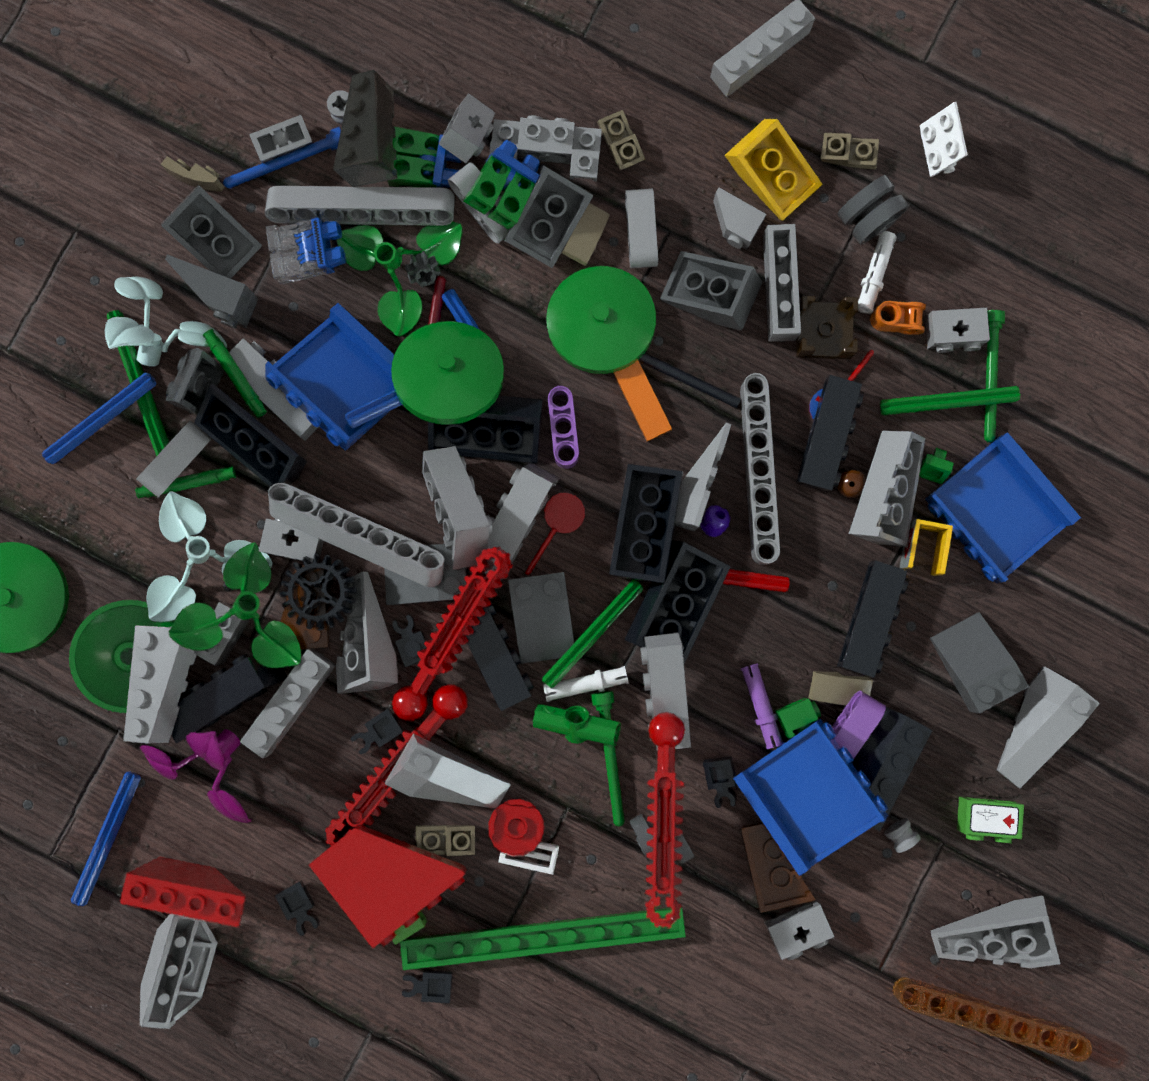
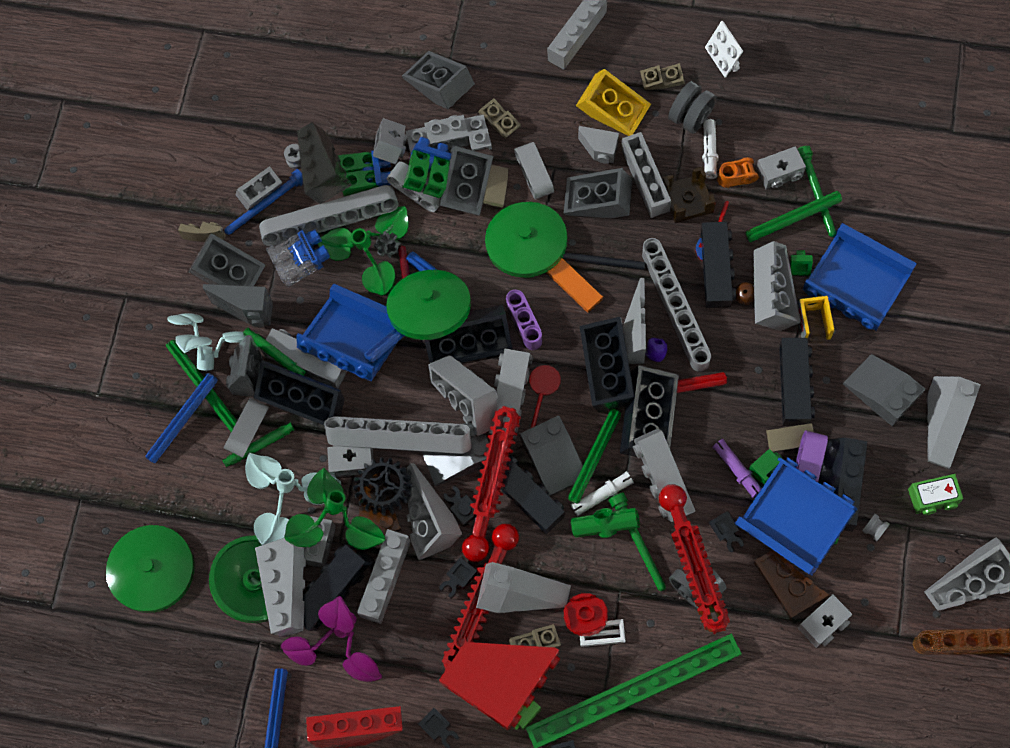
camera: 10 degrees left, 15 degrees down
(560, 59) = (439, 79): none -> dark grey slope

